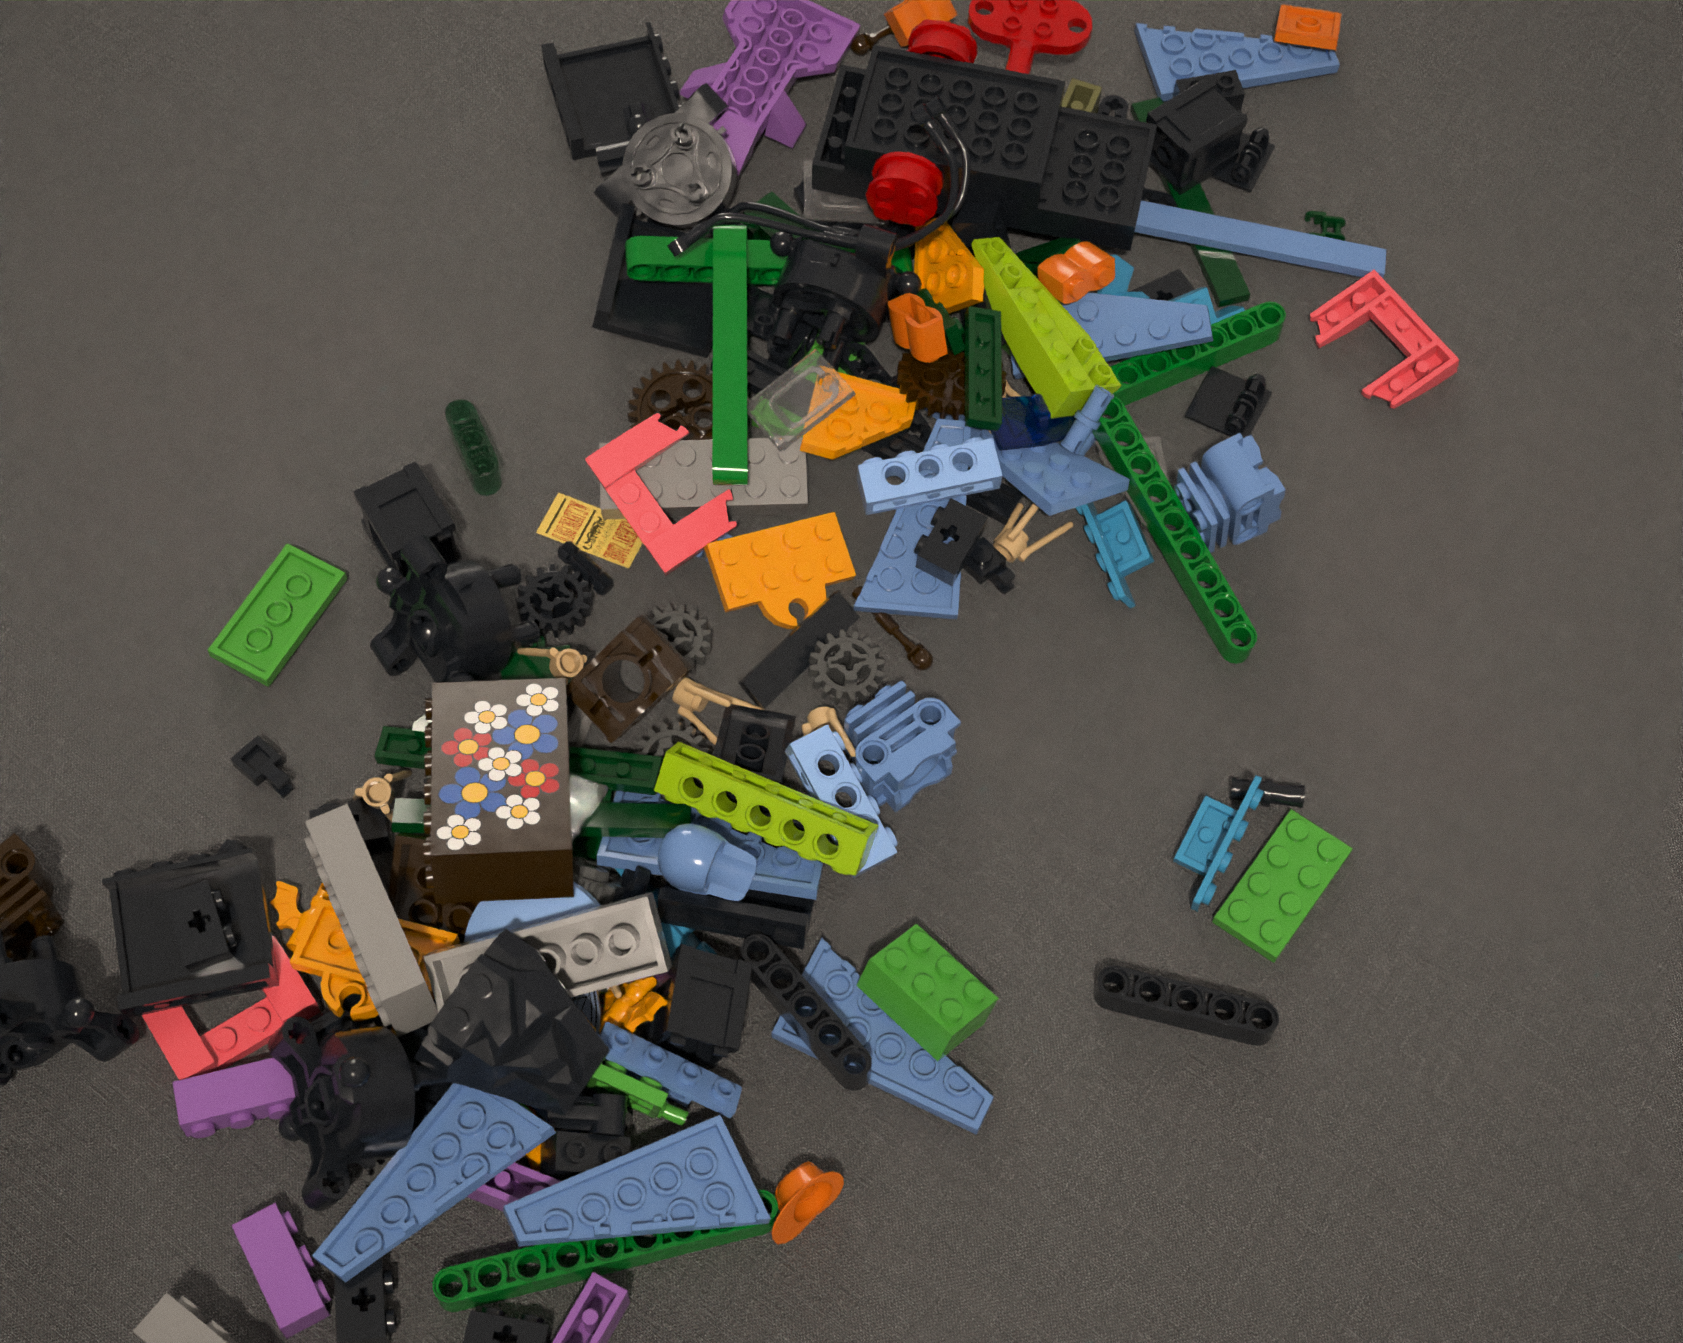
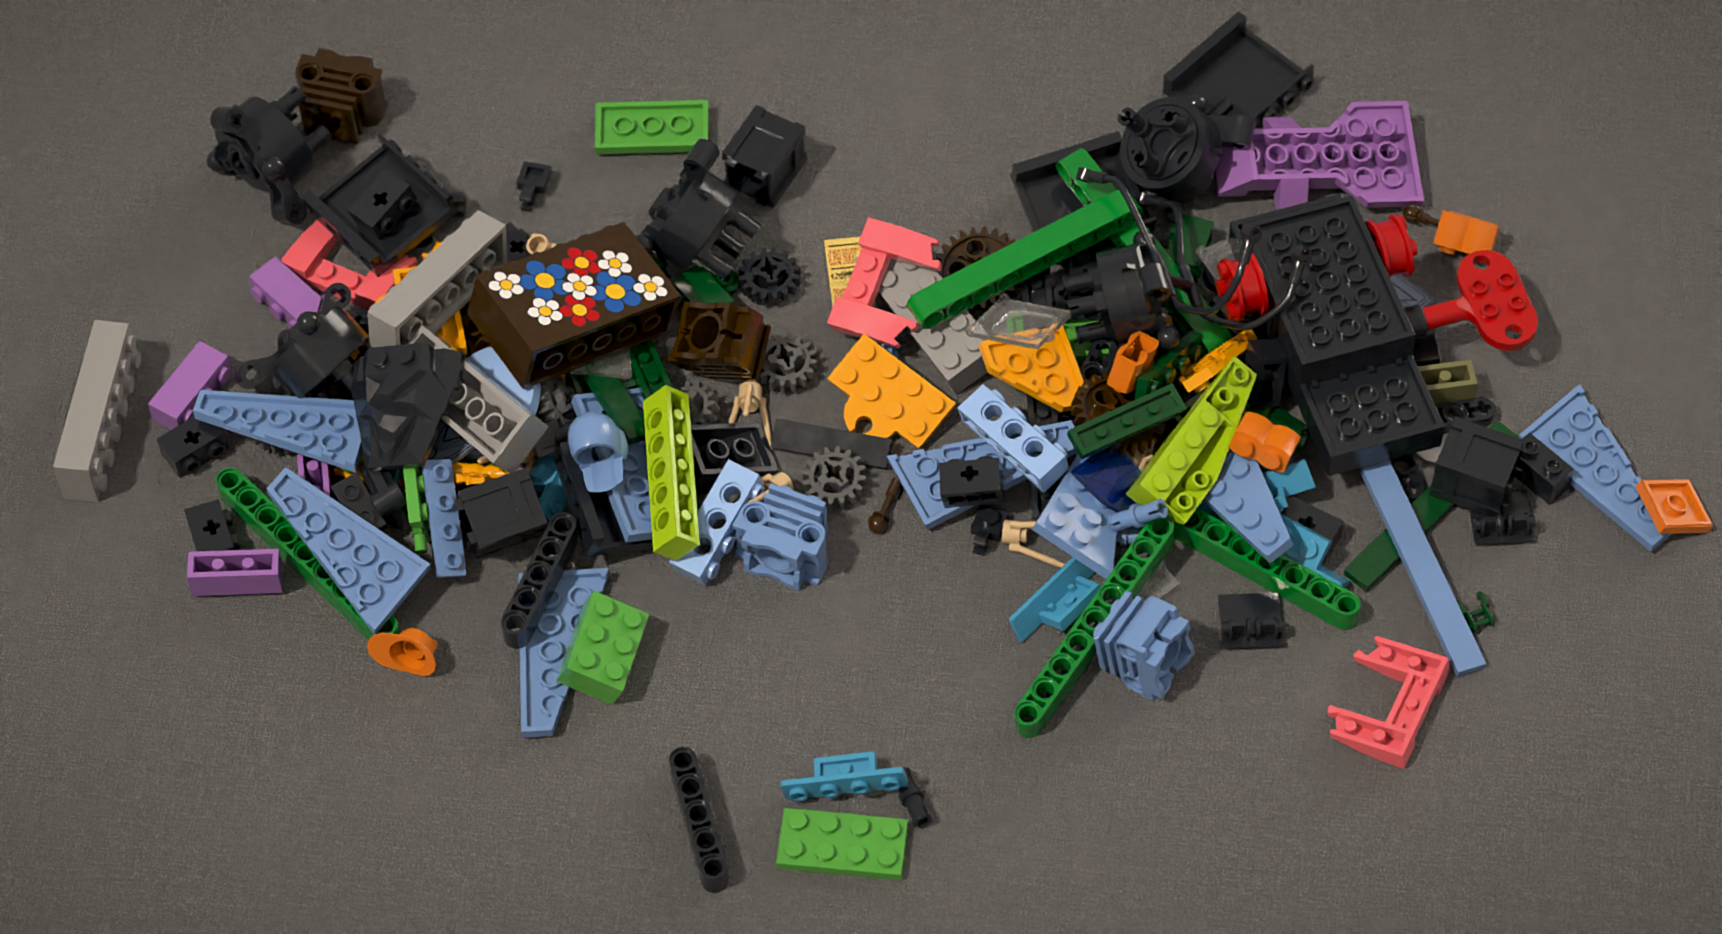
camera: 65 degrees right, 5 degrees down
(478, 459) = (861, 163): clear green beam -> none
(562, 663) = (700, 292): tan plant -> none
(589, 570) = (812, 282): black axle -> none

